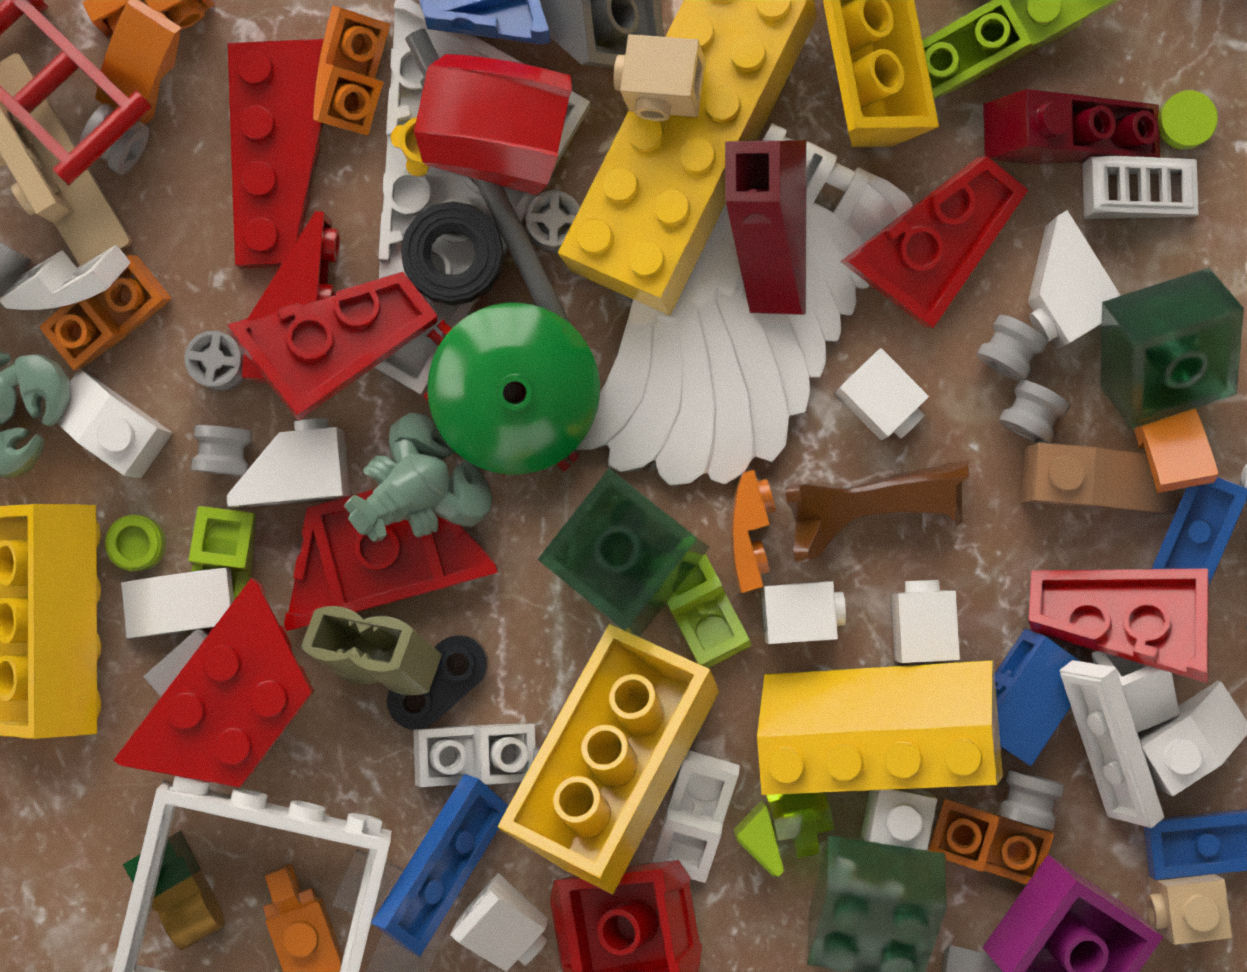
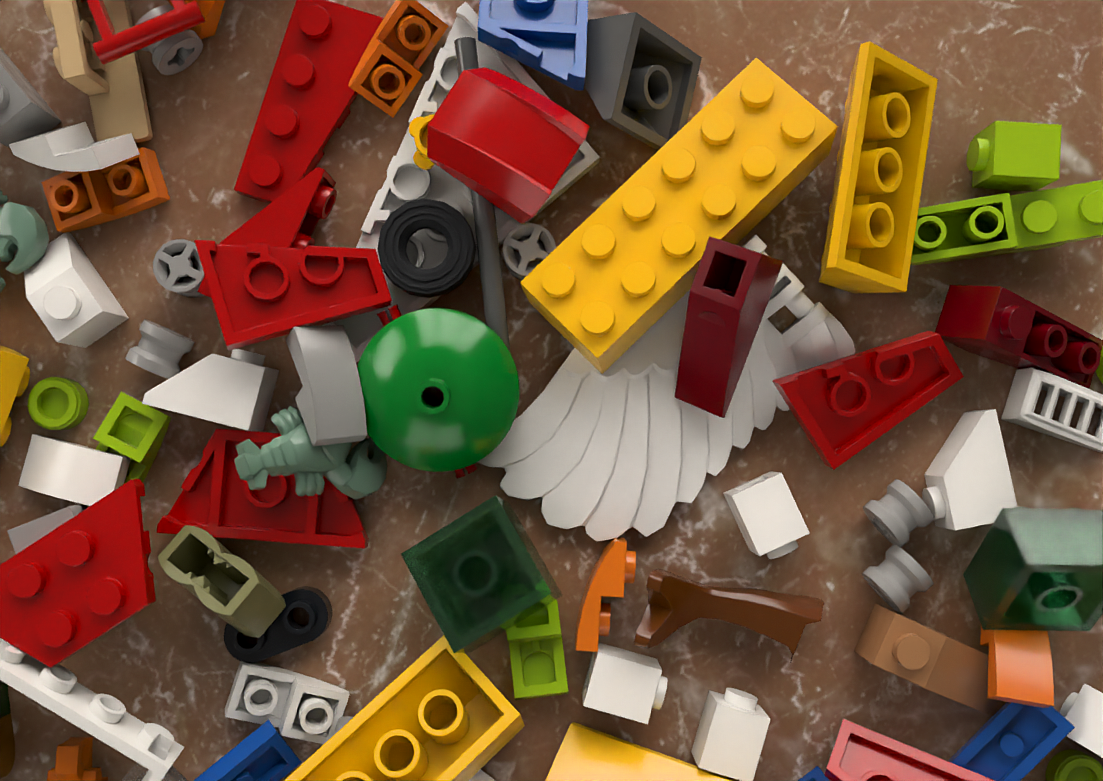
camera: 20 degrees right, 0 degrees up
(412, 423) = (331, 389): none -> light grey slope
(660, 76) = (671, 154): tan brick -> none

